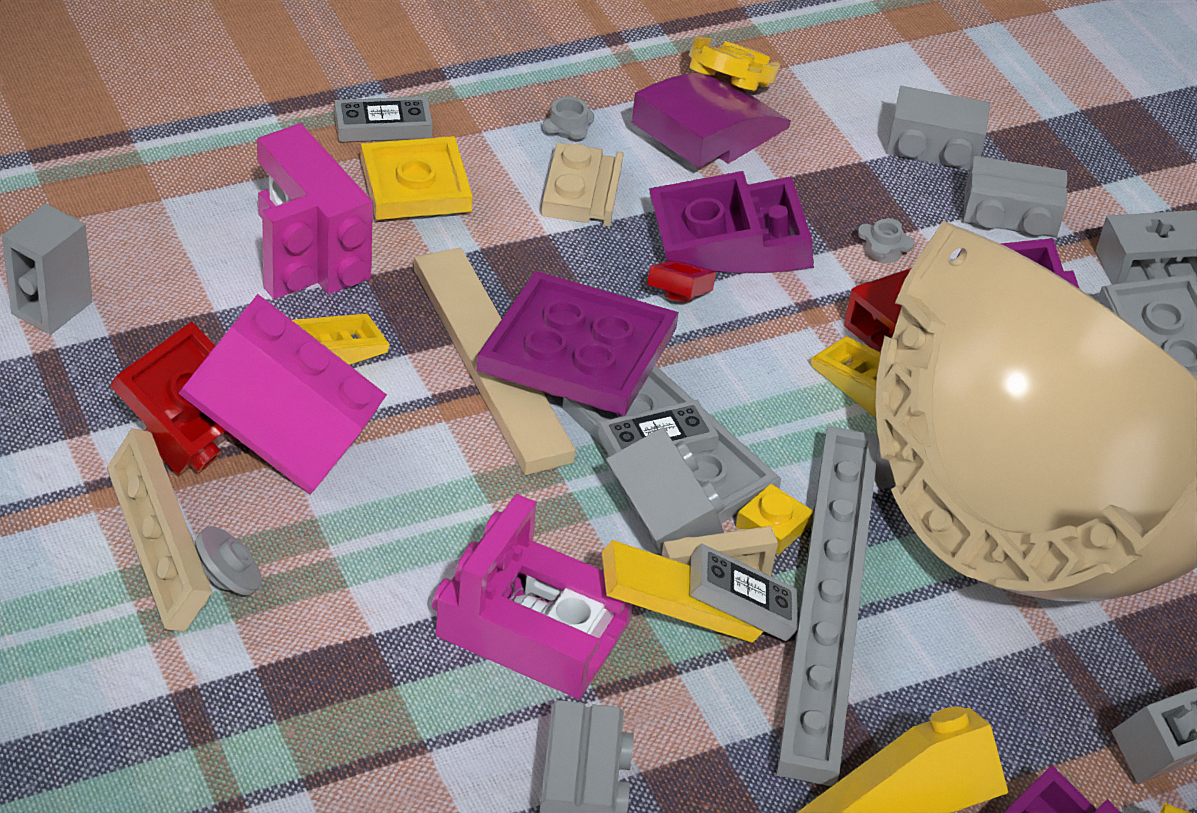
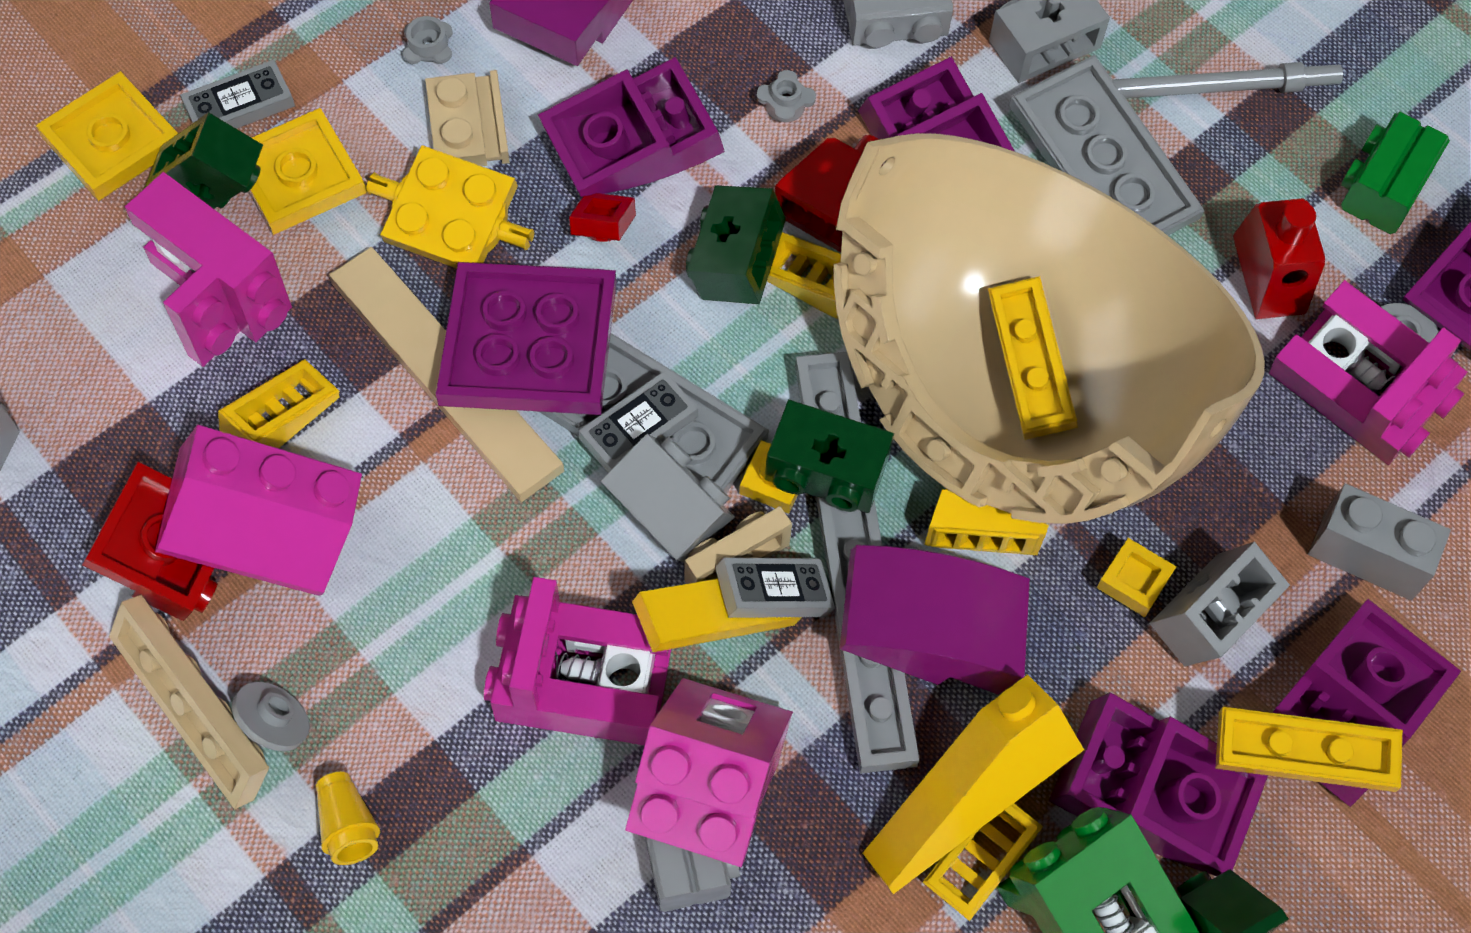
camera: 15 degrees left, 20 degrees up
(258, 107) = (107, 135): none -> yellow plate
(264, 664) = (345, 821): none -> yellow cone
(351, 133) = (210, 160): none -> dark green brick
(542, 235) = (449, 209): none -> yellow plate
(621, 704) = (707, 770): none -> dark pink brick
(800, 328) = (736, 244): none -> dark green brick
(831, 499) = (810, 436): none -> dark green brick
(892, 652) = (936, 616): none -> magenta slope
(955, 605) = (985, 528): none -> yellow slope
(1057, 472) = (1032, 358): none -> yellow tile
(1110, 692) = (1136, 577): none -> yellow plate

